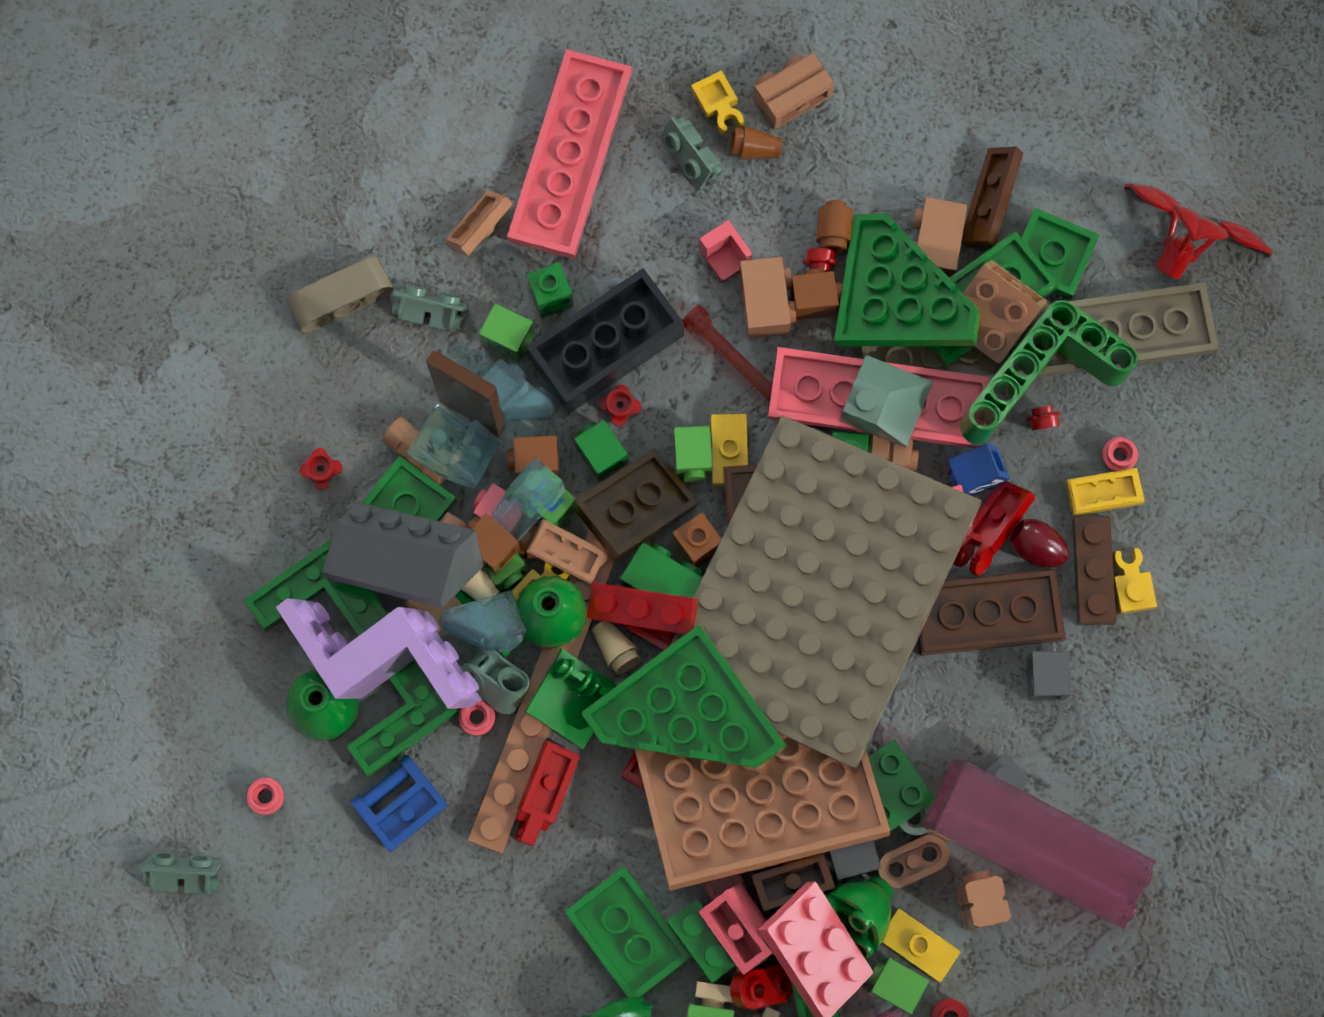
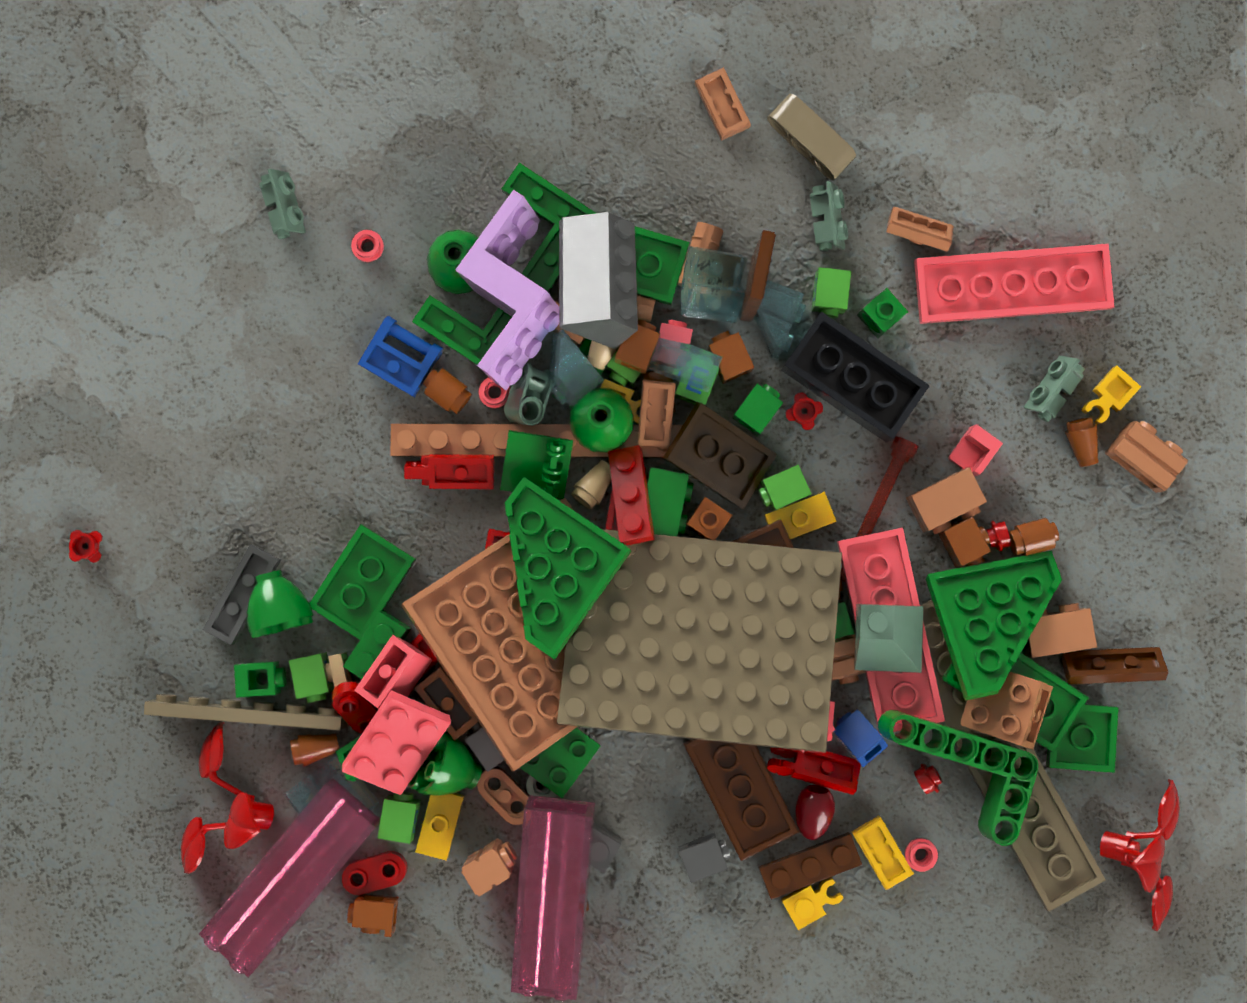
camera: 70 degrees right, 10 degrees up
(268, 371) = (722, 104): none -> nougat plate
(310, 468) = (654, 172): red plate -> none
(456, 766) = (446, 390): none -> dark orange brick

